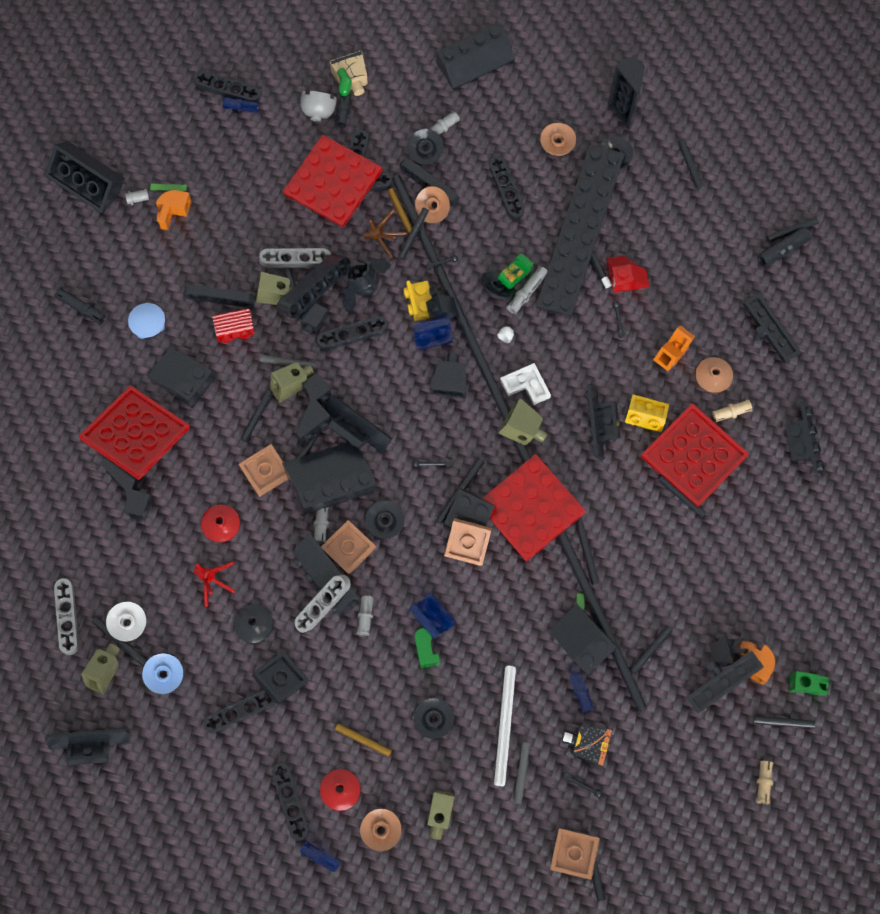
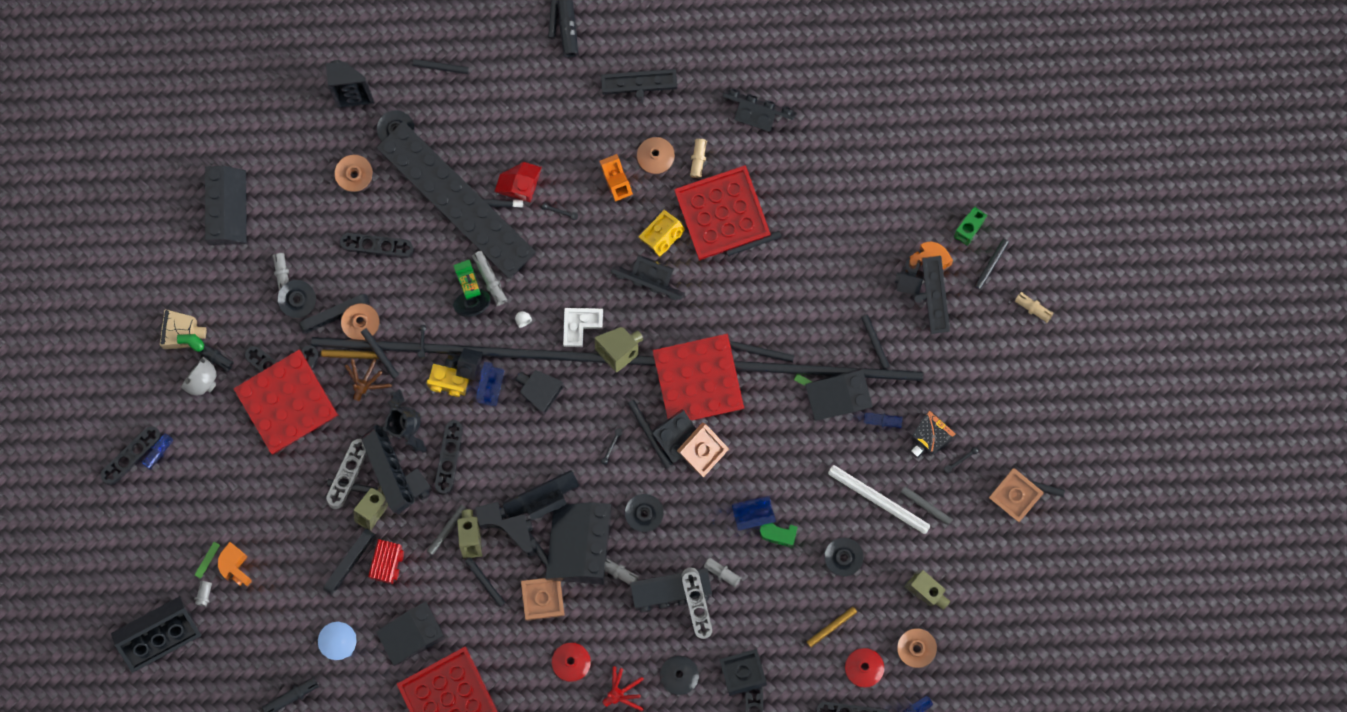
camera: 55 degrees left, 5 degrees up
(348, 547) = (653, 557): nougat plate -> none

